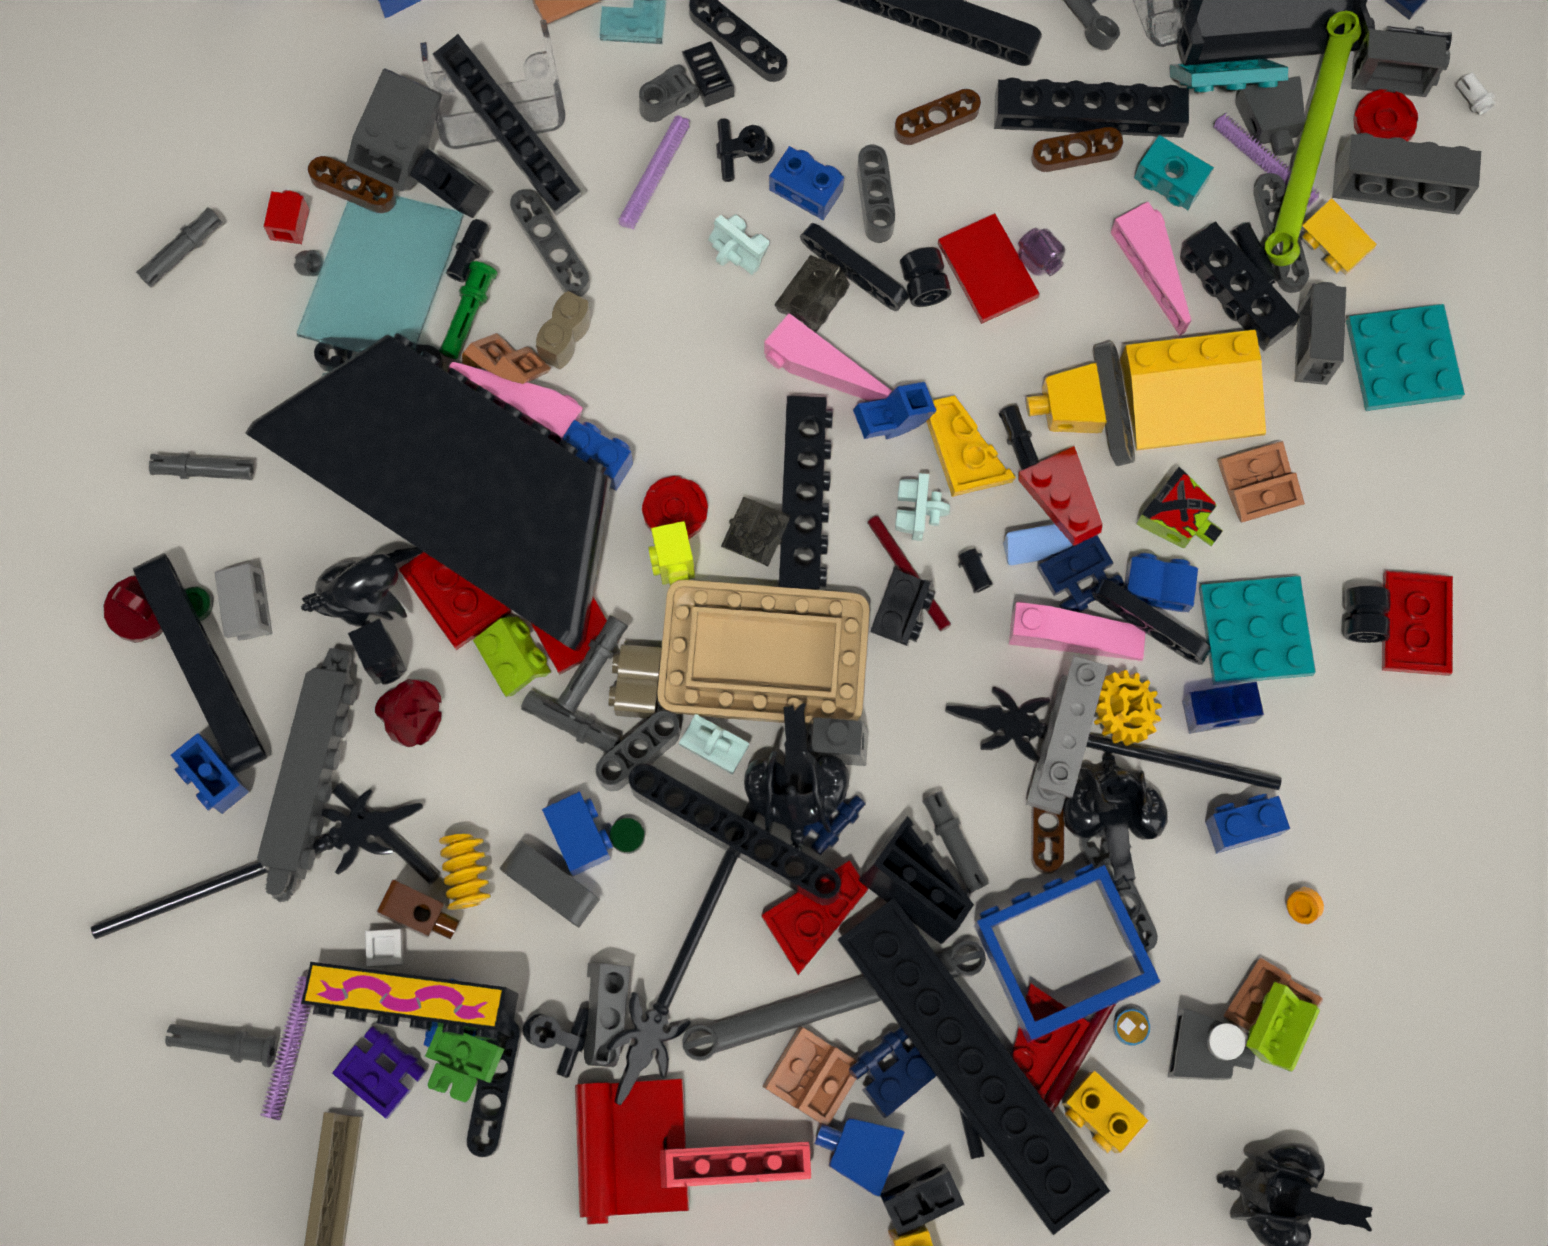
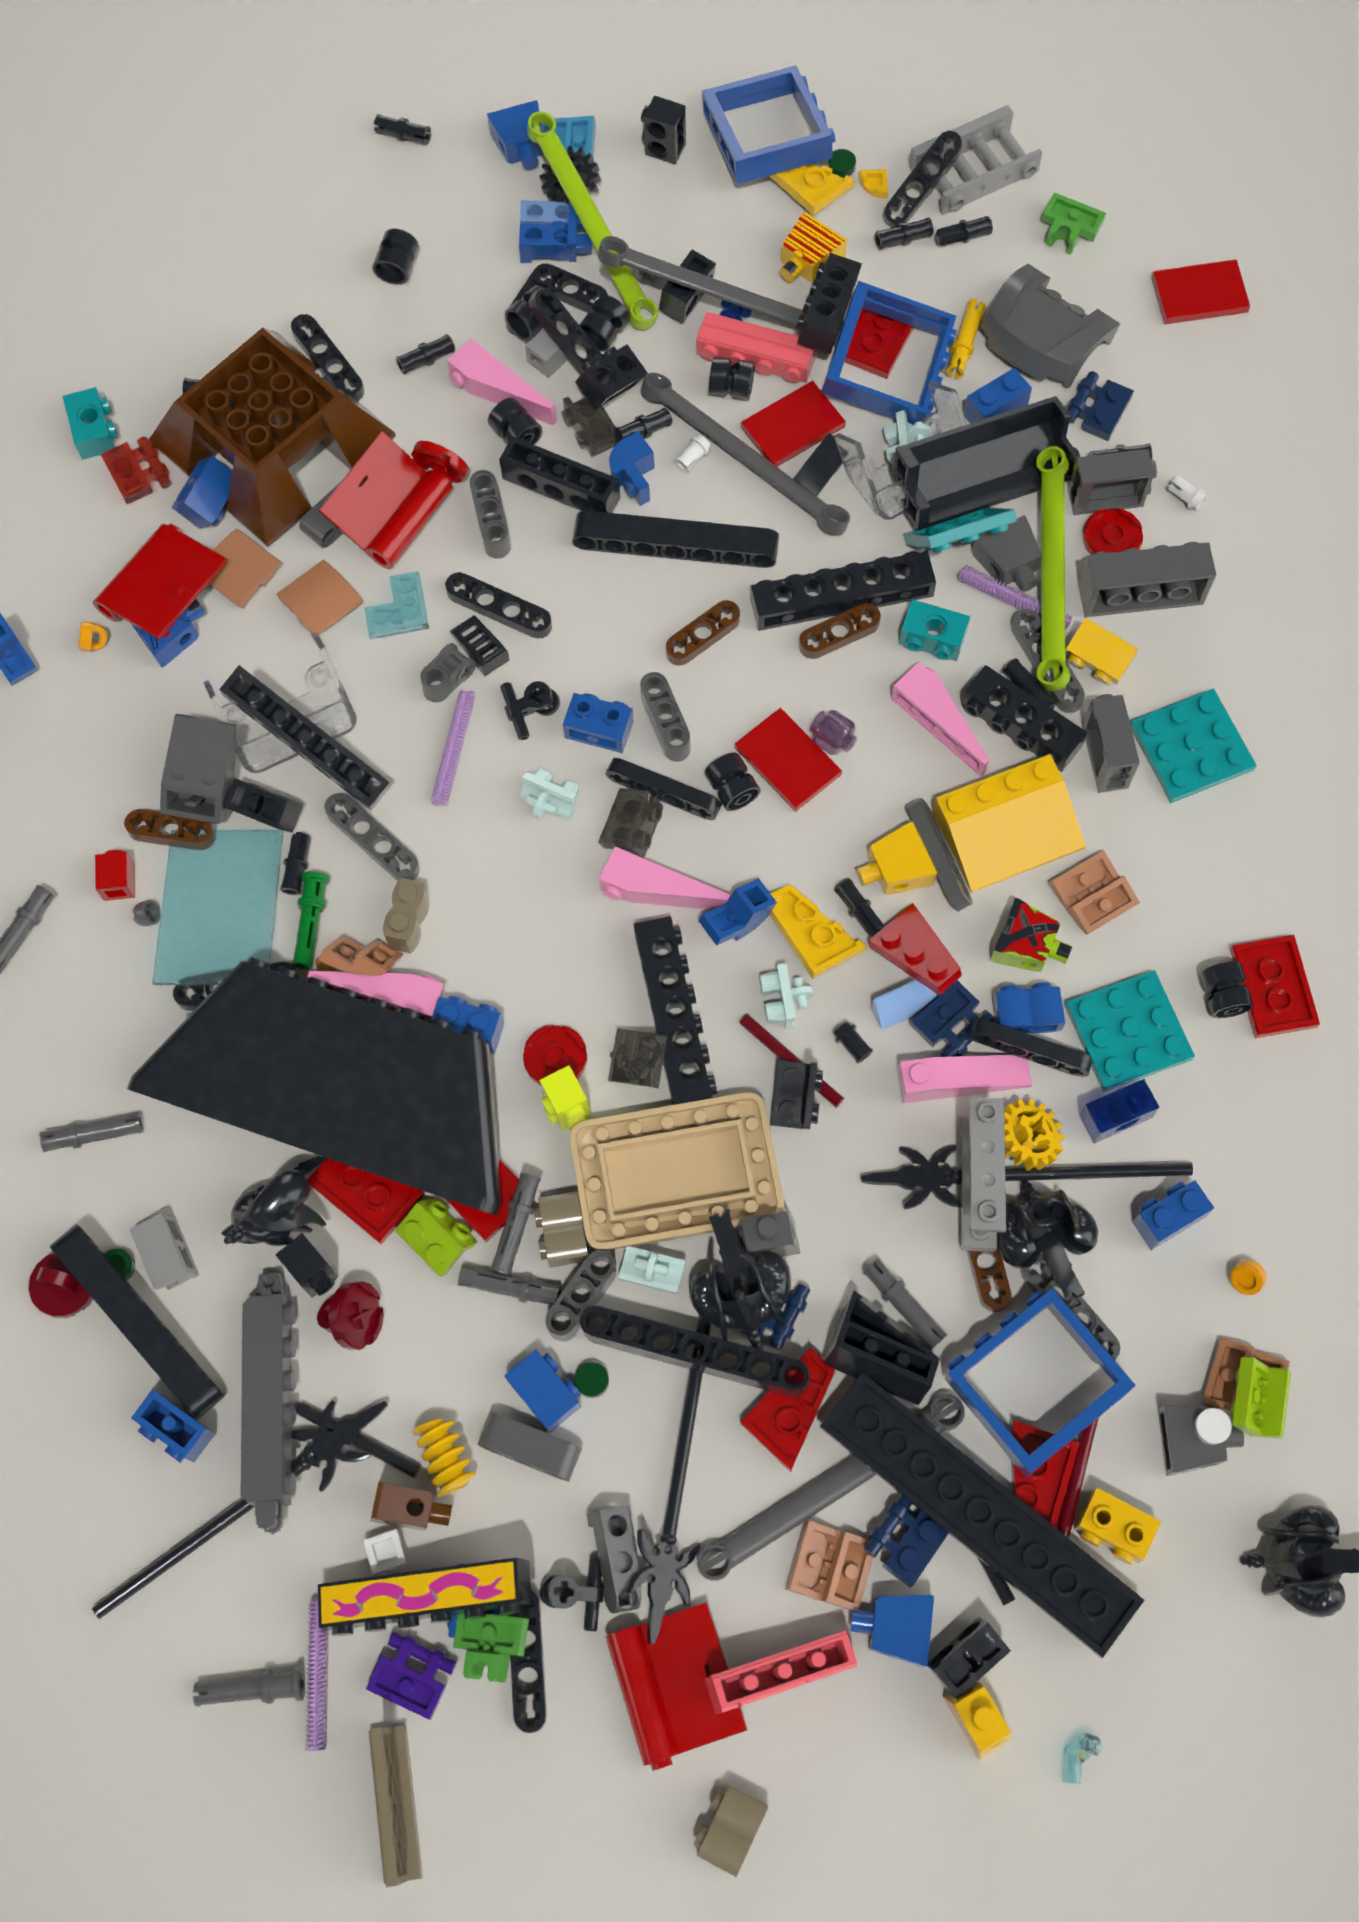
camera: 10 degrees left, 5 degrees down
(1131, 1027) = (1119, 1437): tile -> none

